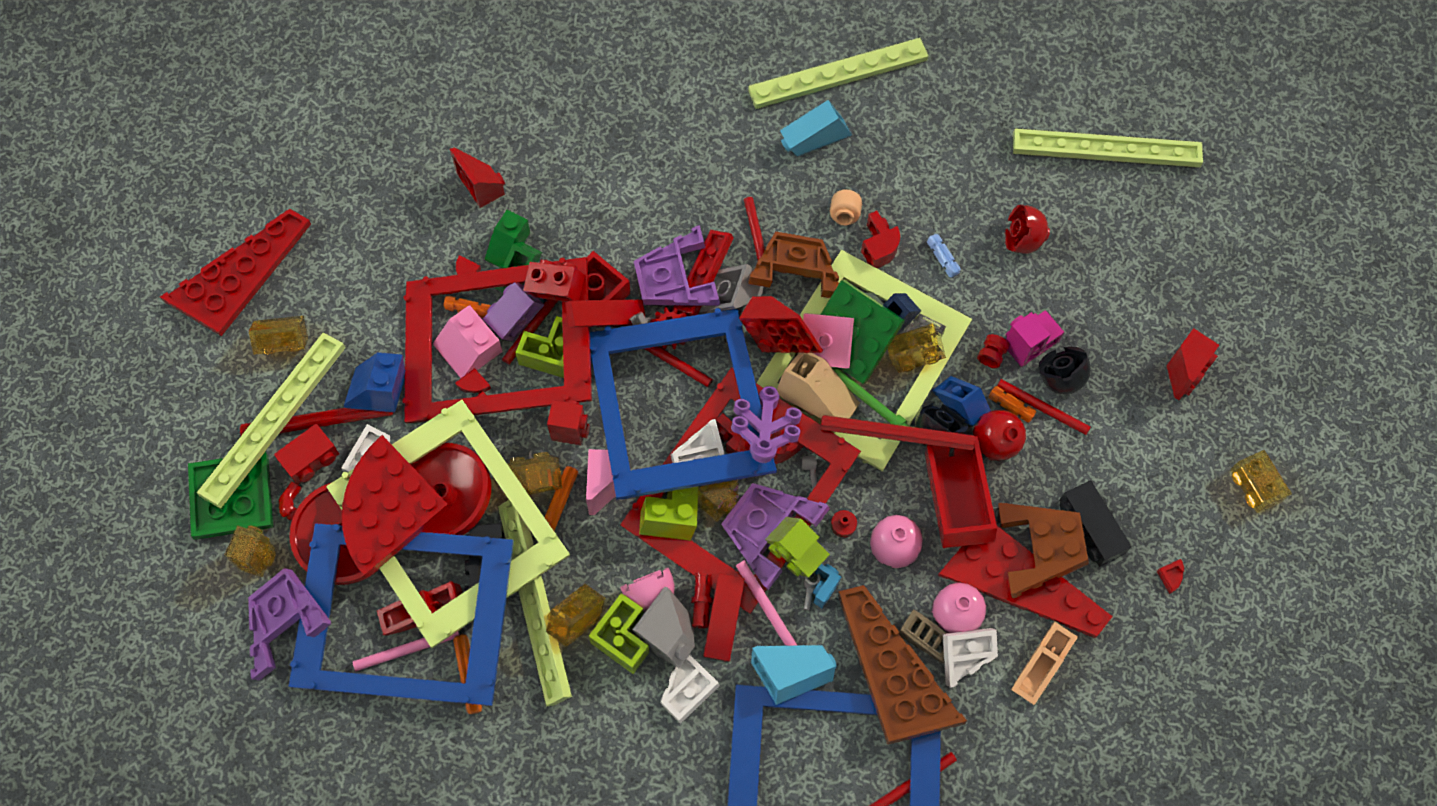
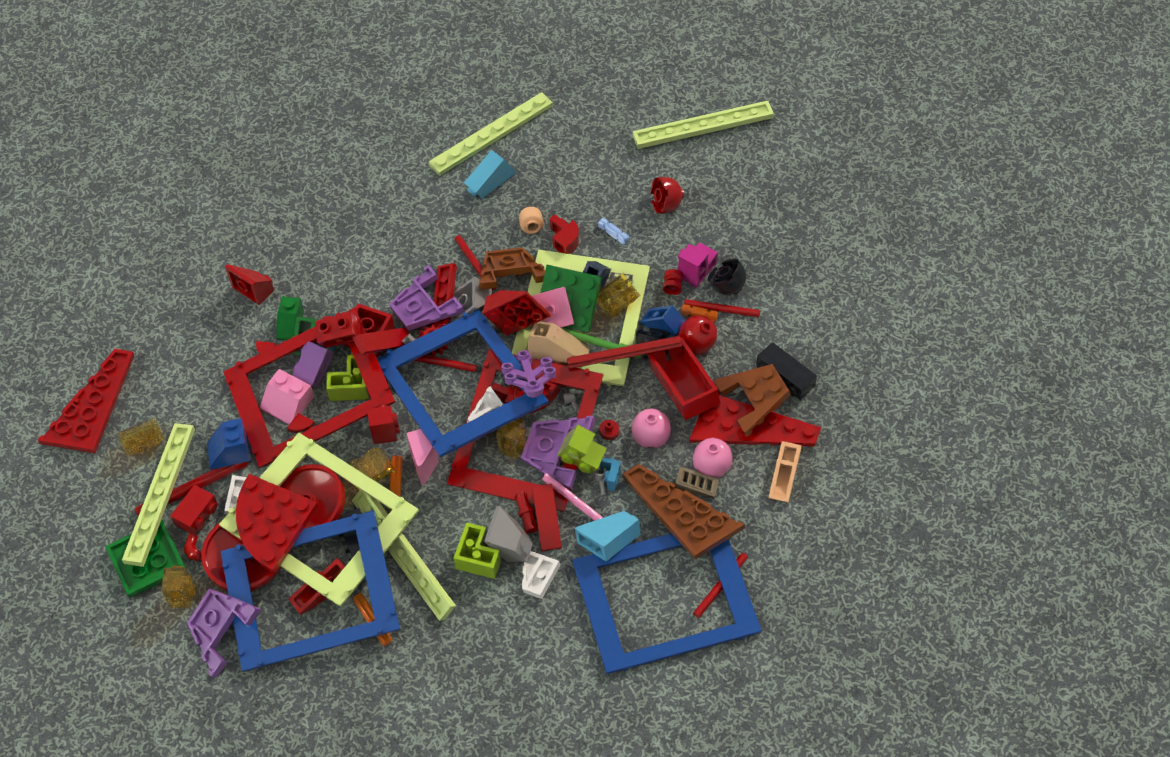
camera: 15 degrees left, 10 degrees down
(395, 653) = (316, 621): bright pink bar -> none
(452, 304) = (263, 375): orange axle -> none
(531, 327) = (332, 366): red bar -> none
(575, 615) = (438, 549): clear yellow brick -> none
(648, 588) = (484, 513): bright pink cylinder -> none
(671, 516) = (483, 461): lime brick -> none
(967, 652) = (729, 483): white wing -> none
(1172, 575) = (852, 388): red tile -> none
(1191, 363) = (813, 244): red slope -> none
(1260, 481) = (890, 307): clear yellow brick -> none

